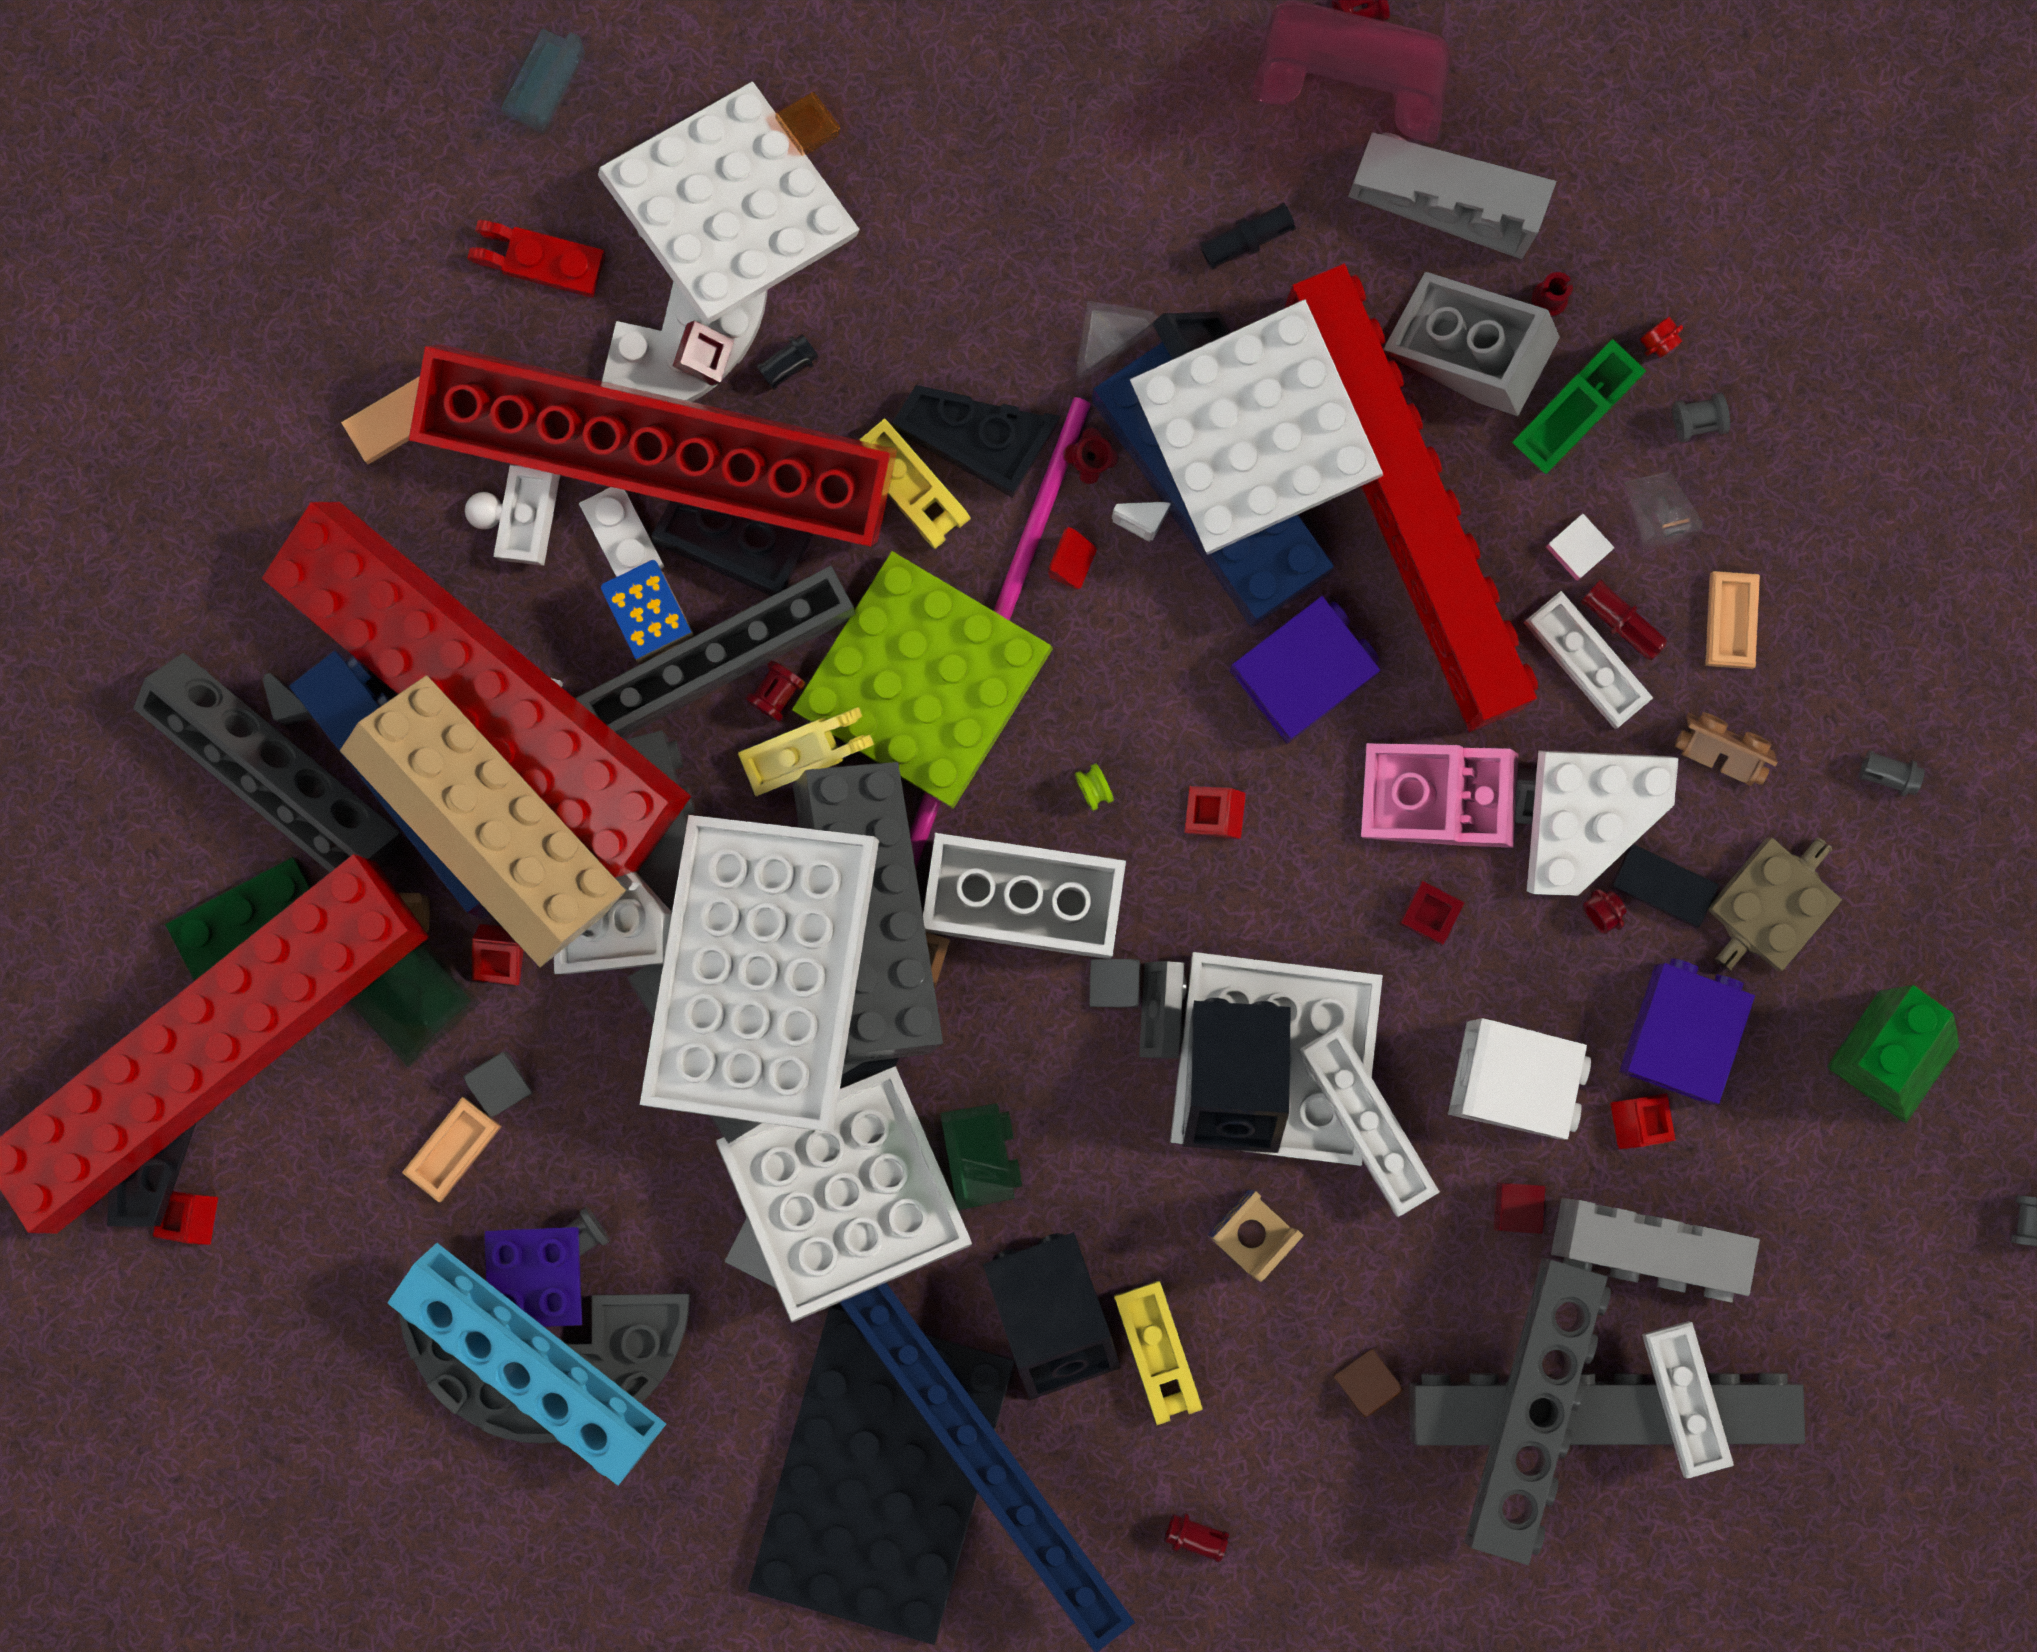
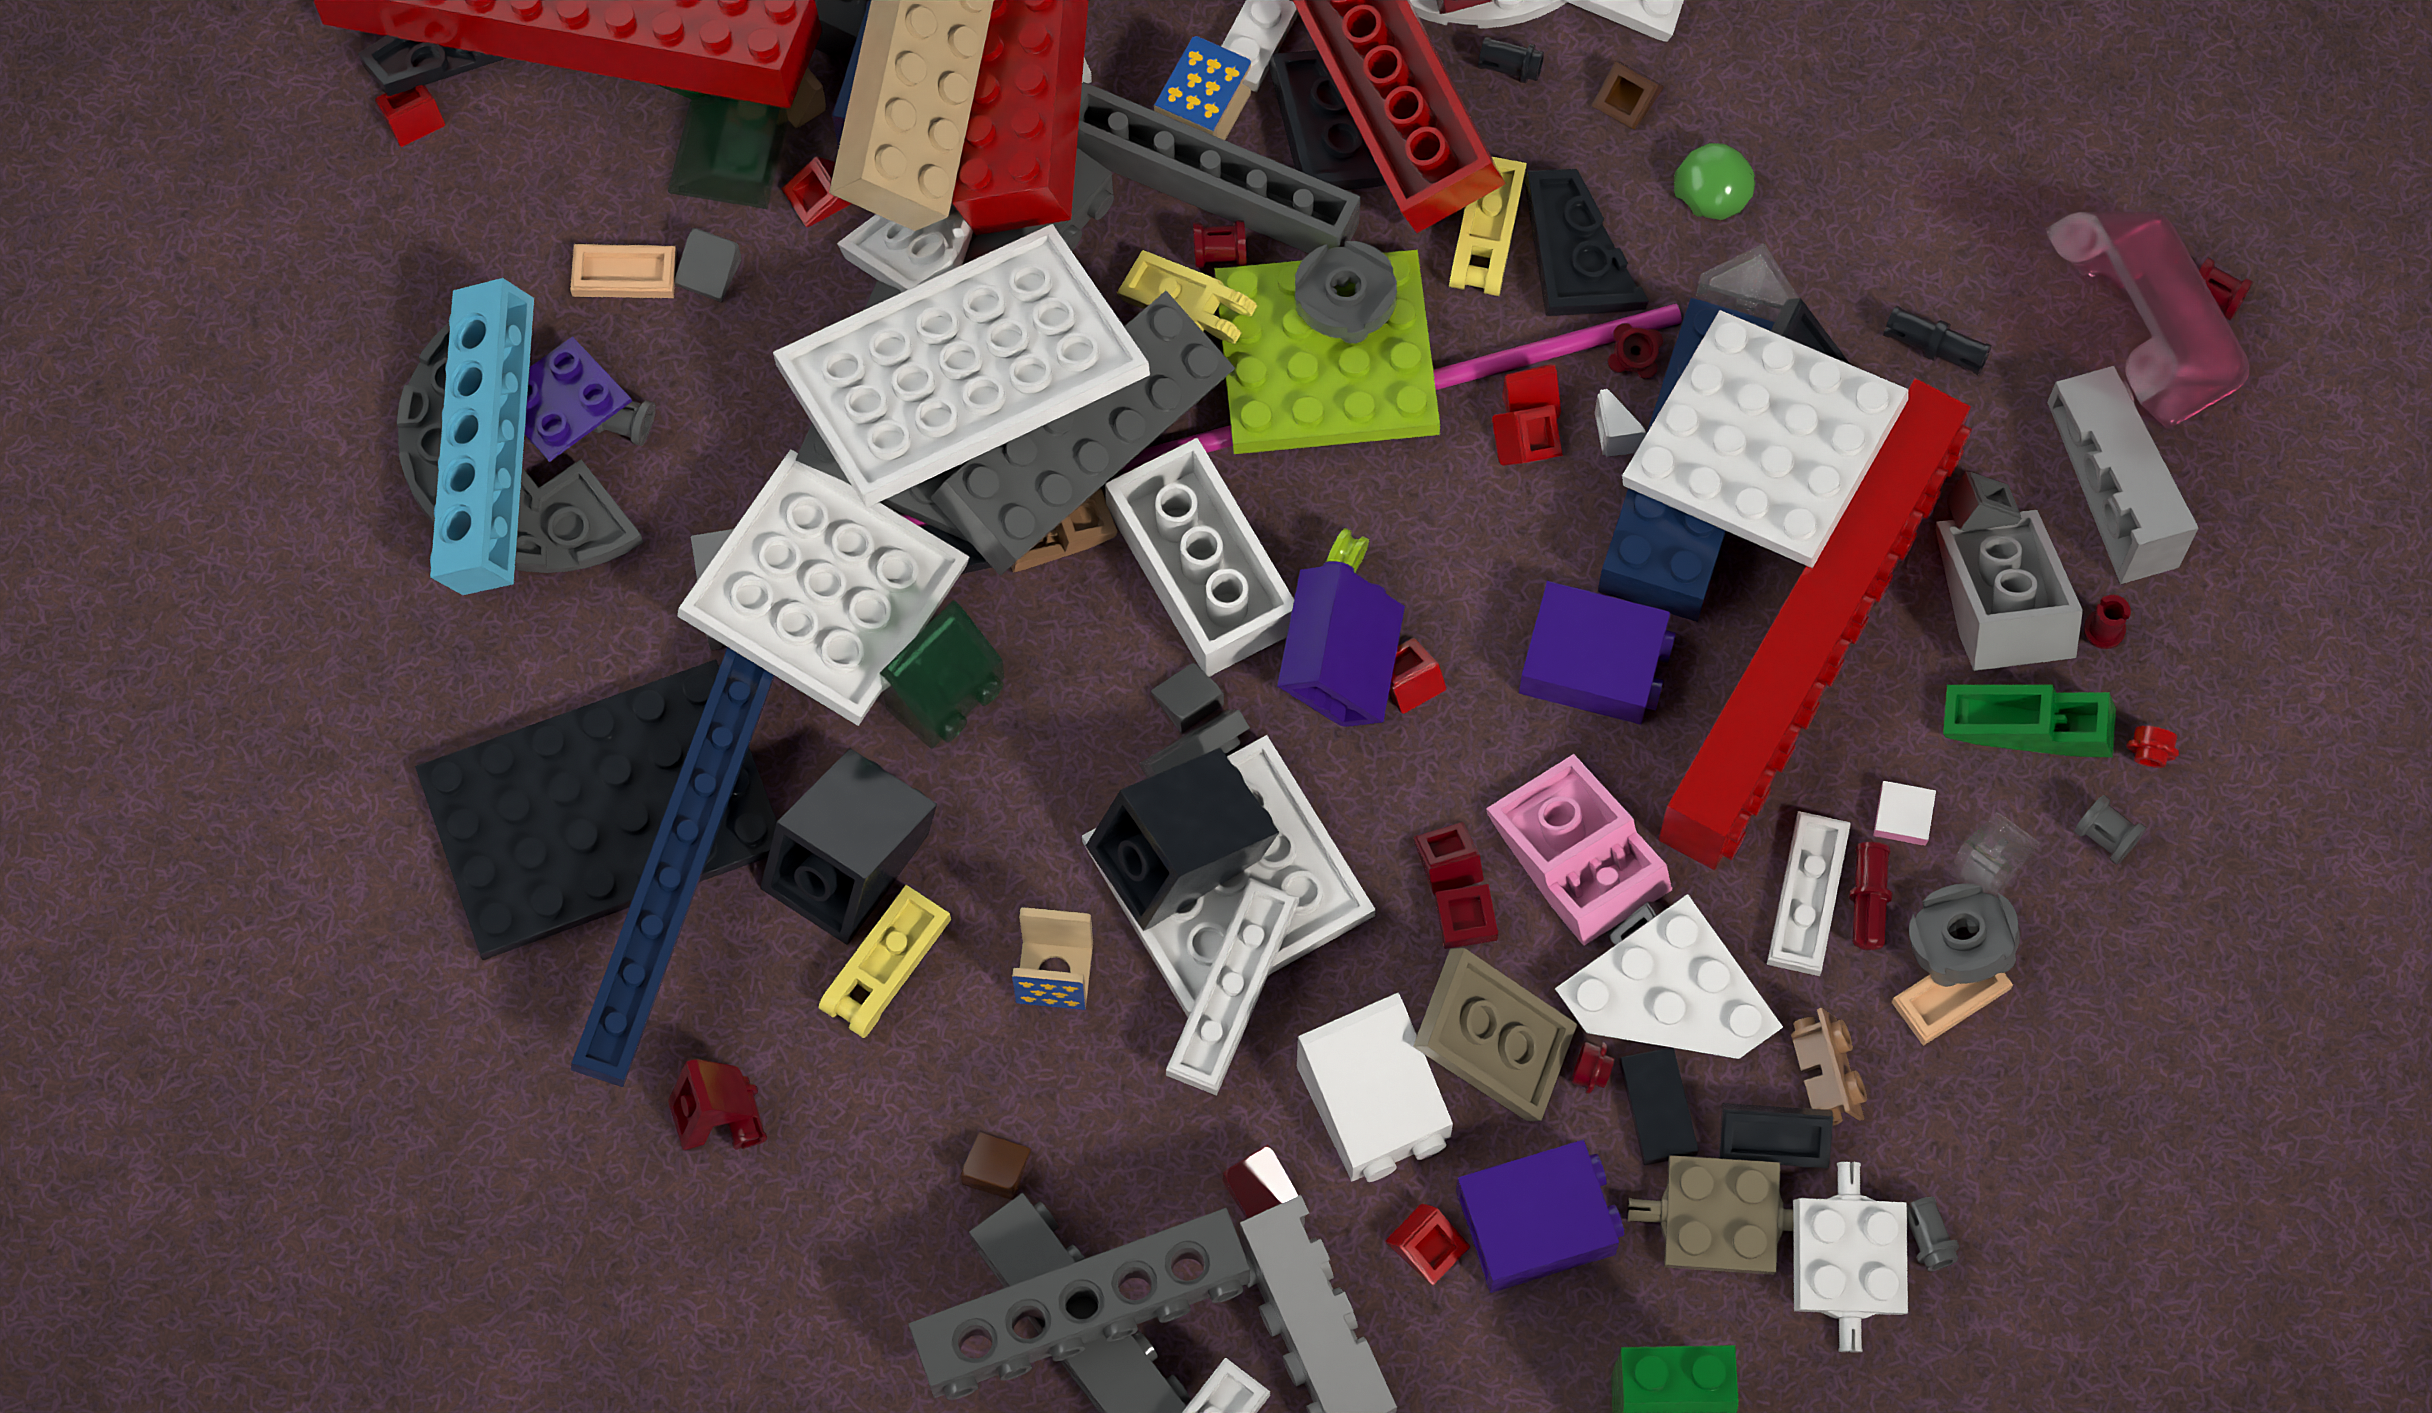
camera: 60 degrees right, 15 degrees down
(870, 621) = (1350, 316): none -> dark grey plate
(879, 298) = (1627, 95): none -> reddish brown slope
(999, 293) = (1715, 181): none -> bright green hair
(1098, 586) = (1527, 435): none -> red slope
(1171, 848) = (1341, 645): none -> dark purple brick
(1181, 1560) = (707, 1097): none -> dark red slope
(1374, 889) = (1449, 858): none -> dark red slope
(1397, 306) = (1982, 503): none -> dark grey slope
(1546, 967) = (1495, 1034): none -> dark tan plate
(1696, 555) = (1967, 960): none -> dark grey plate
(1748, 823) = (1776, 1134): none -> black tile
(1870, 841) = (1850, 1257): none -> white plate

